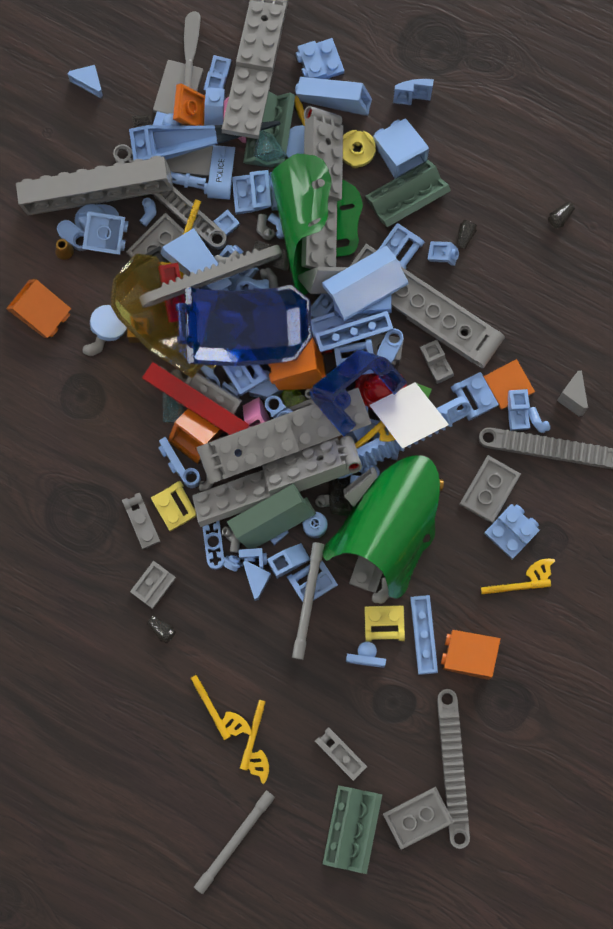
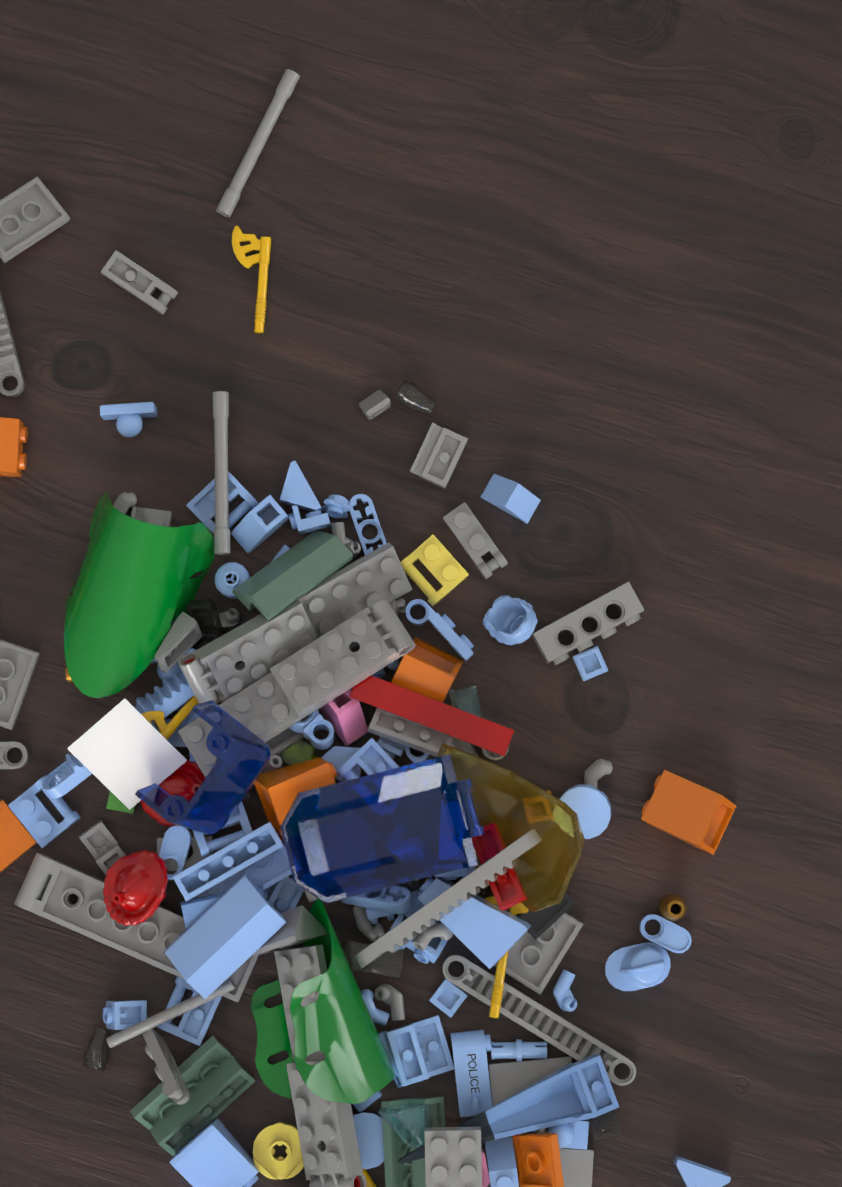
camera: 170 degrees right, 5 degrees up
(81, 421) = (590, 663): none -> light blue tile
(94, 185) = (648, 1007): light grey brick -> none
(104, 232) = (618, 941): light blue plate -> none
(105, 444) = (621, 597): none -> light grey brick
(110, 545) = (511, 497): none -> light blue slope
(128, 459) = (510, 620): none -> light blue hair
(190, 631) = (375, 404): none -> light grey slope
(221, 724) = (307, 289): yellow piece -> none
(352, 829) = (105, 189): sand green slope -> none
(384, 616) = (115, 476): light yellow plate -> none
(418, 243) = (167, 1014): none -> light grey piece
(419, 327) = (135, 887): none -> red piece
(421, 209) = (166, 1067): none -> light grey plate
(424, 635) = (57, 463): light blue tile -> none

